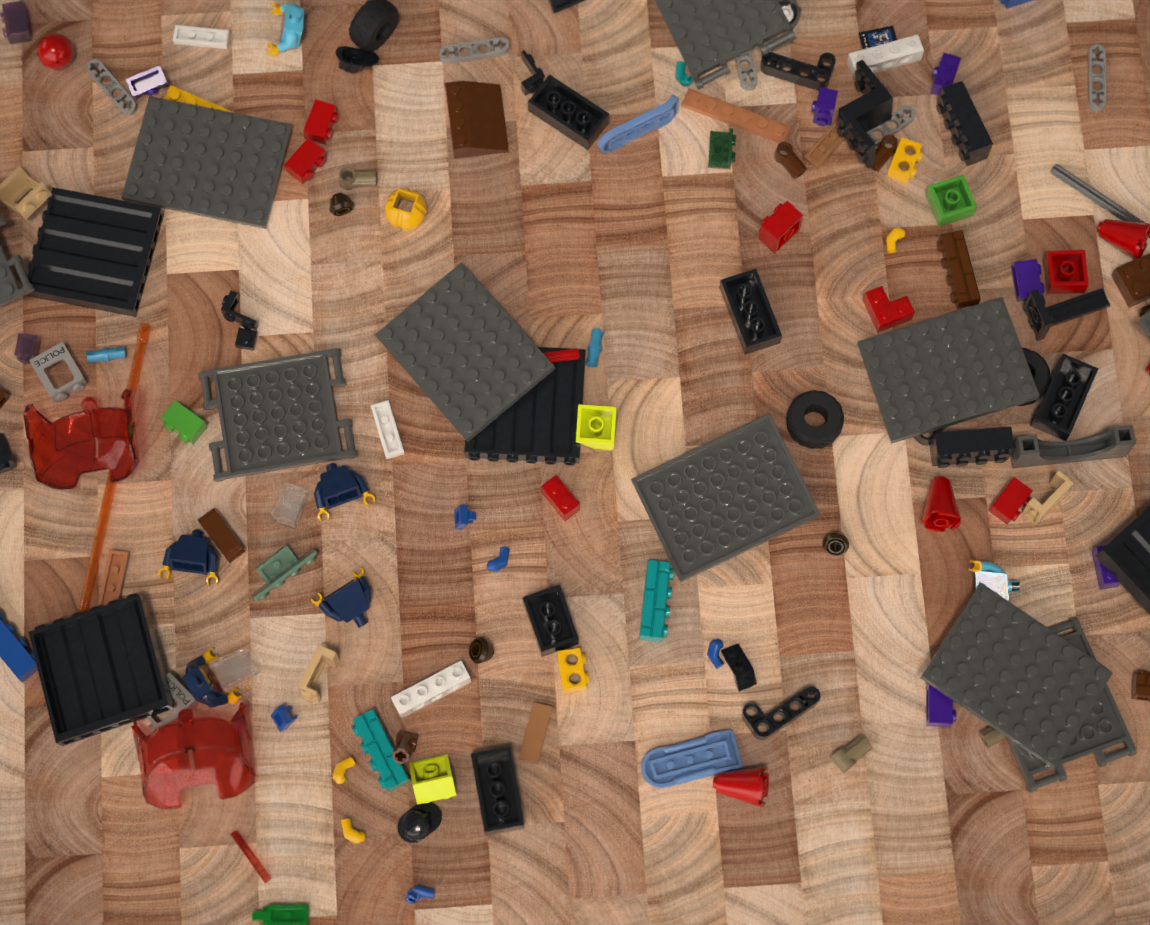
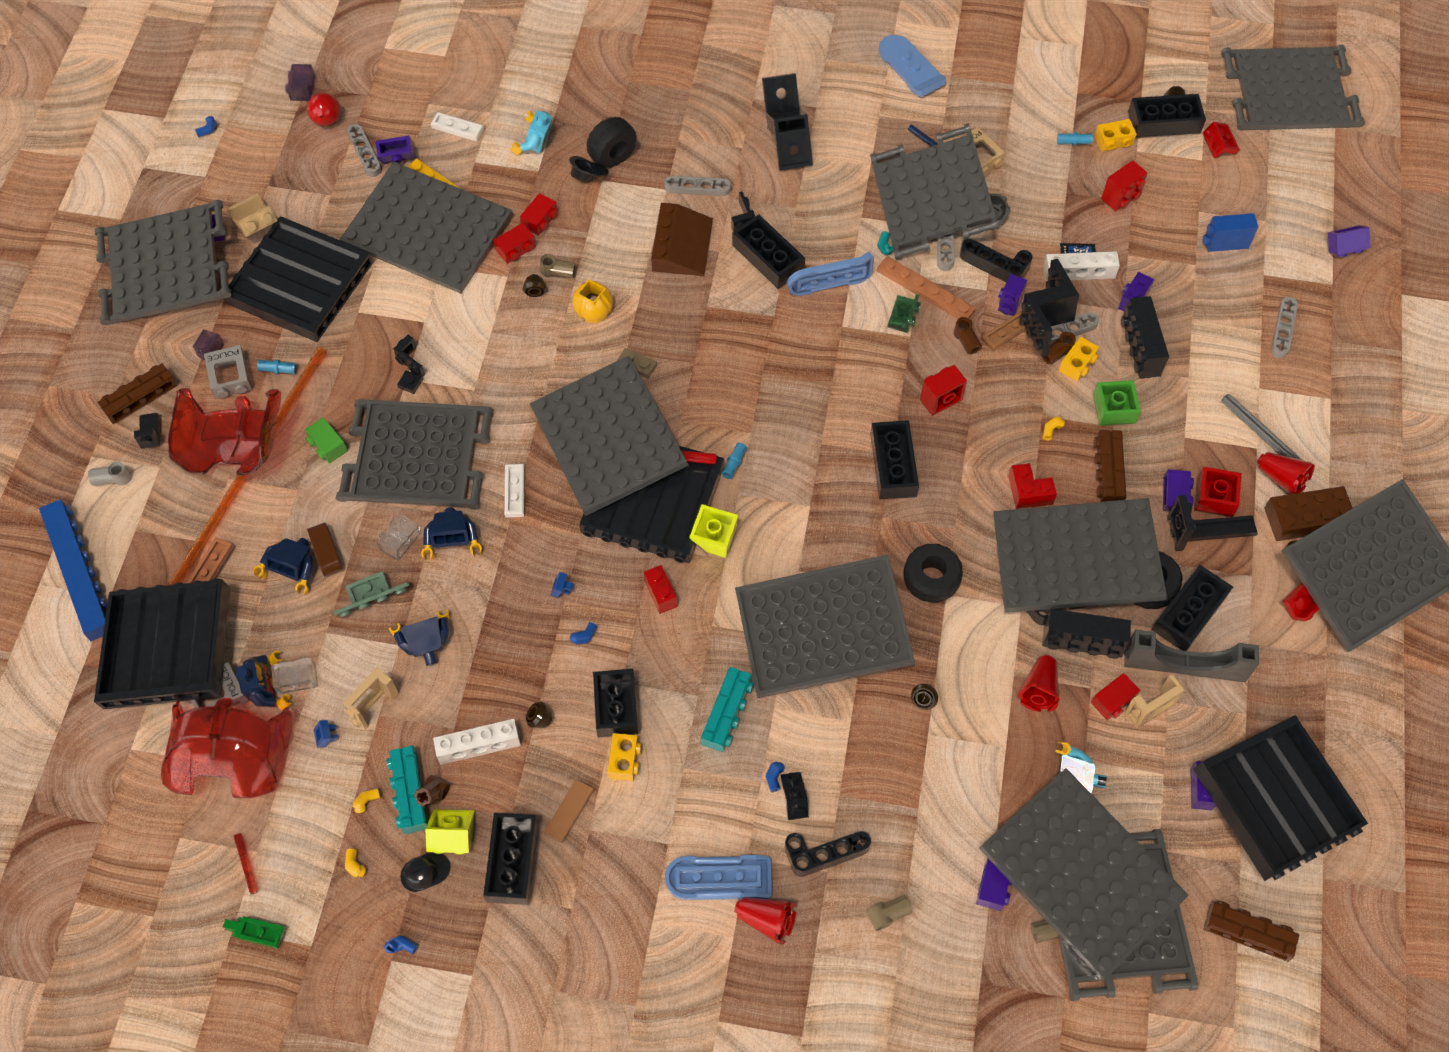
camera: 15 degrees right, 10 degrees down
(476, 265) = (643, 364): none -> dark tan plate

